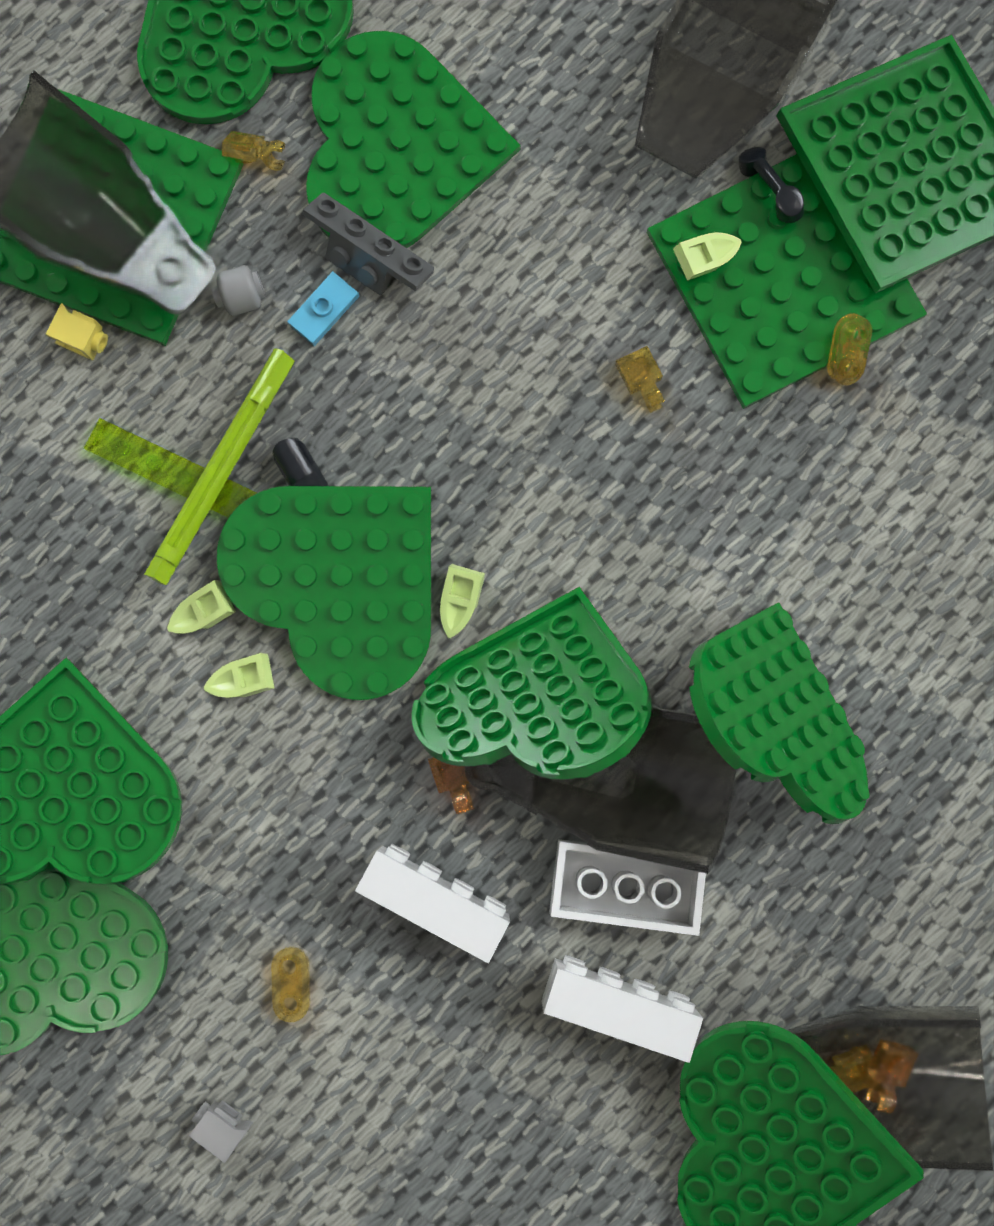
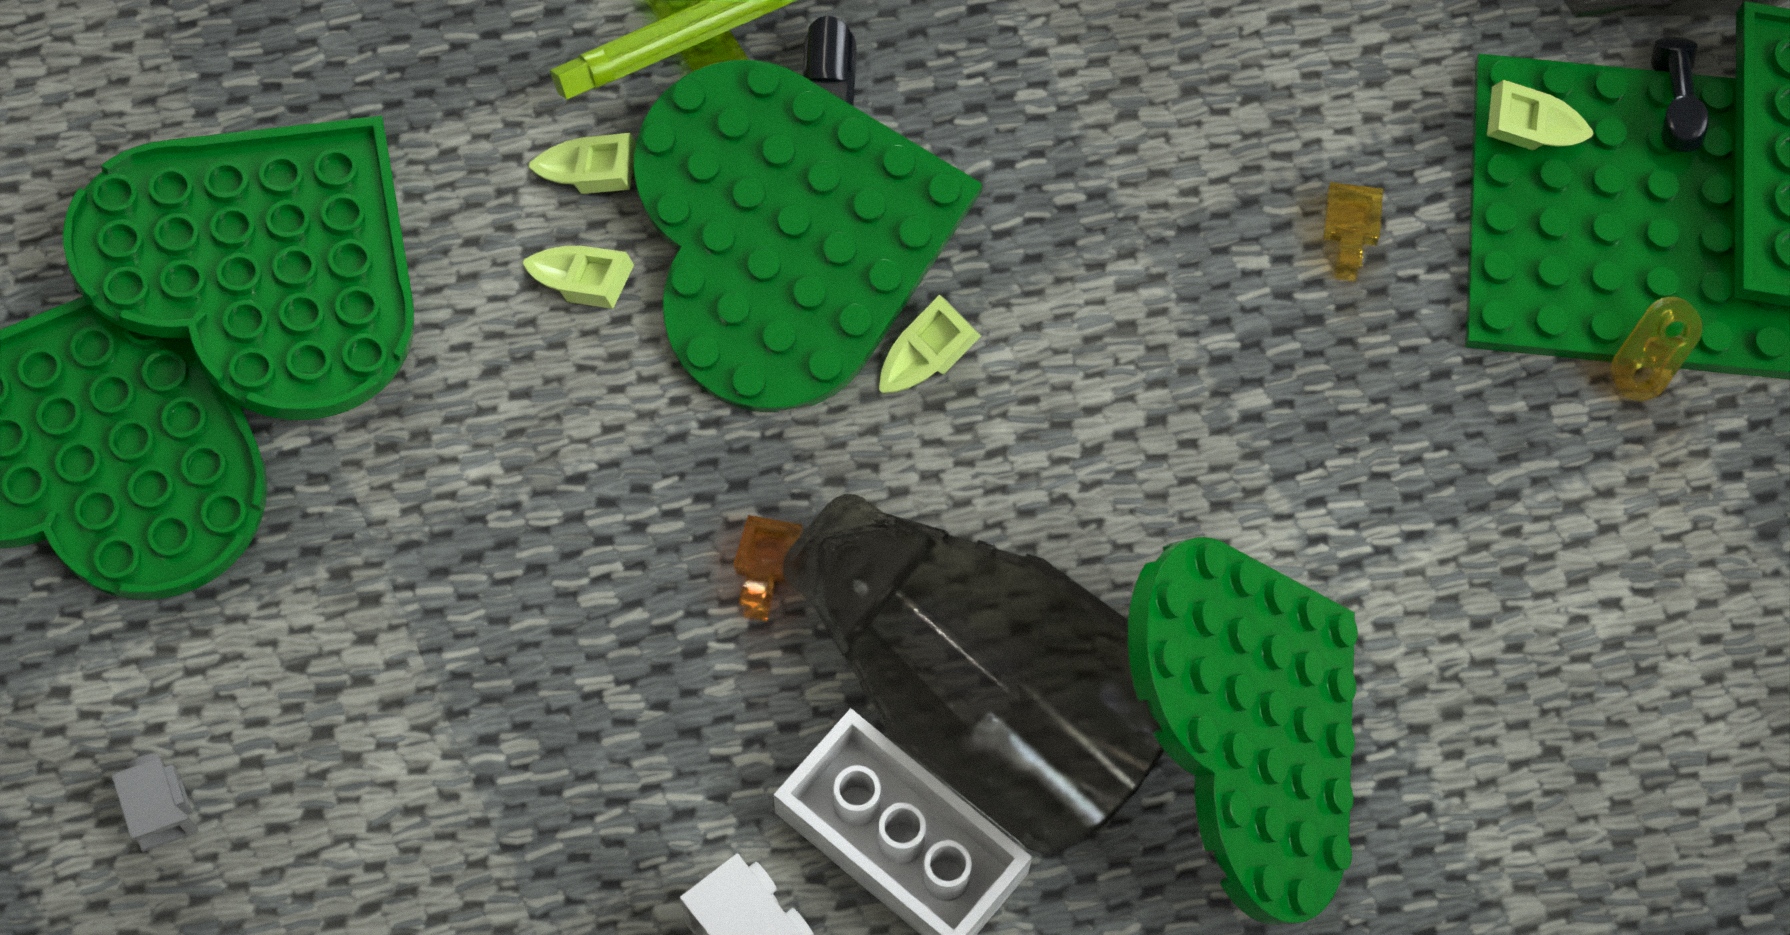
camera: 30 degrees right, 15 degrees down
(291, 985) = (374, 684): clear yellow plate -> none
(434, 903) = (632, 685): white brick -> none
(540, 689) = (944, 499): green plate -> none

